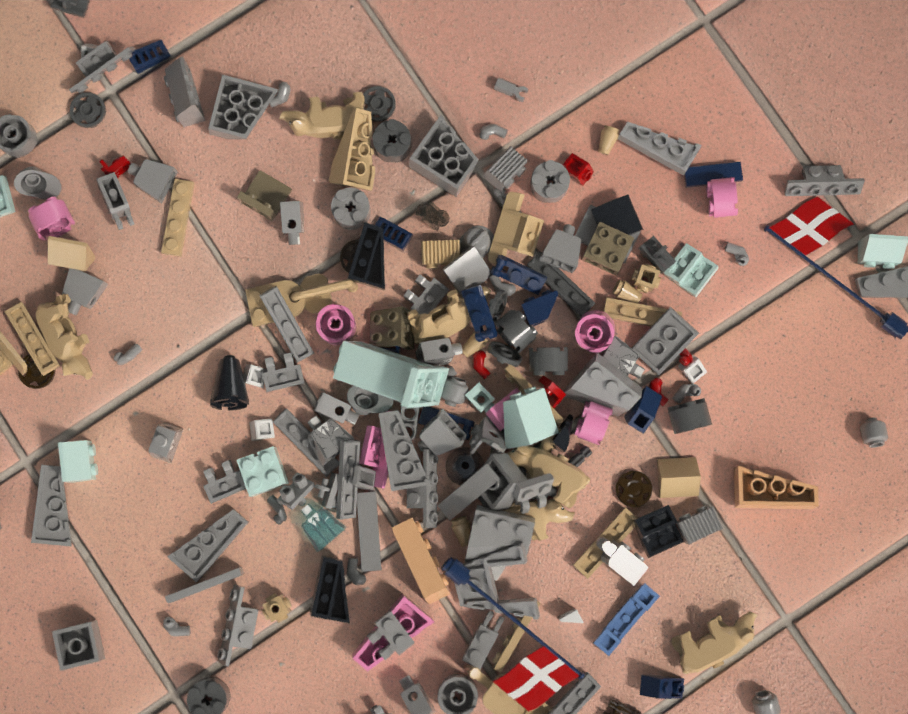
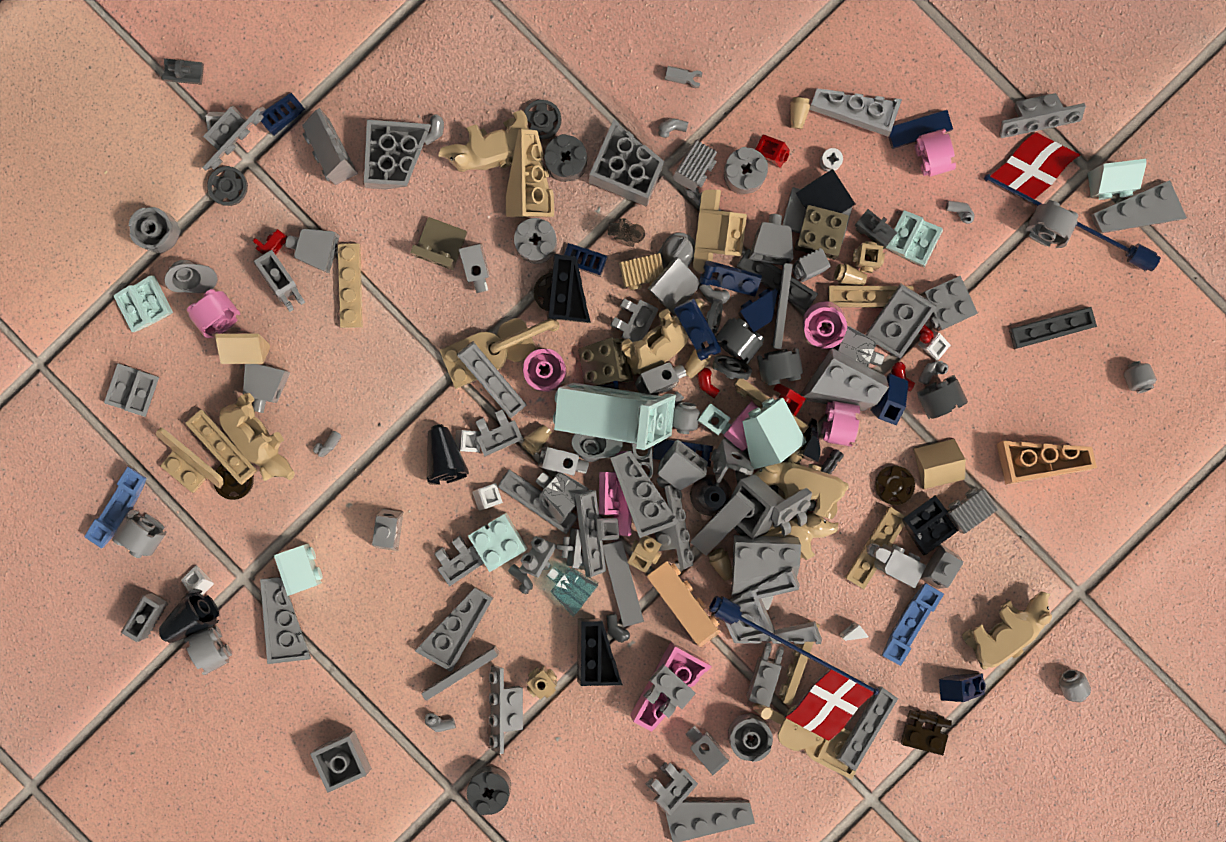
camera: 10 degrees left, 5 degrees up
(315, 386) = (536, 439): none -> tan cone
(393, 507) = (644, 553): none -> tan brick
(560, 307) = (782, 306): none -> light grey tile
(592, 276) = (810, 265): none -> light grey brick
(625, 189) = (827, 162): none -> white wheel
(662, 572) = (942, 568): none -> light grey torso
(714, 334) = (952, 303): none -> light grey plate
(802, 373) = (1052, 328): none -> dark grey tile
(816, 280) = (1052, 224): none -> light grey brick

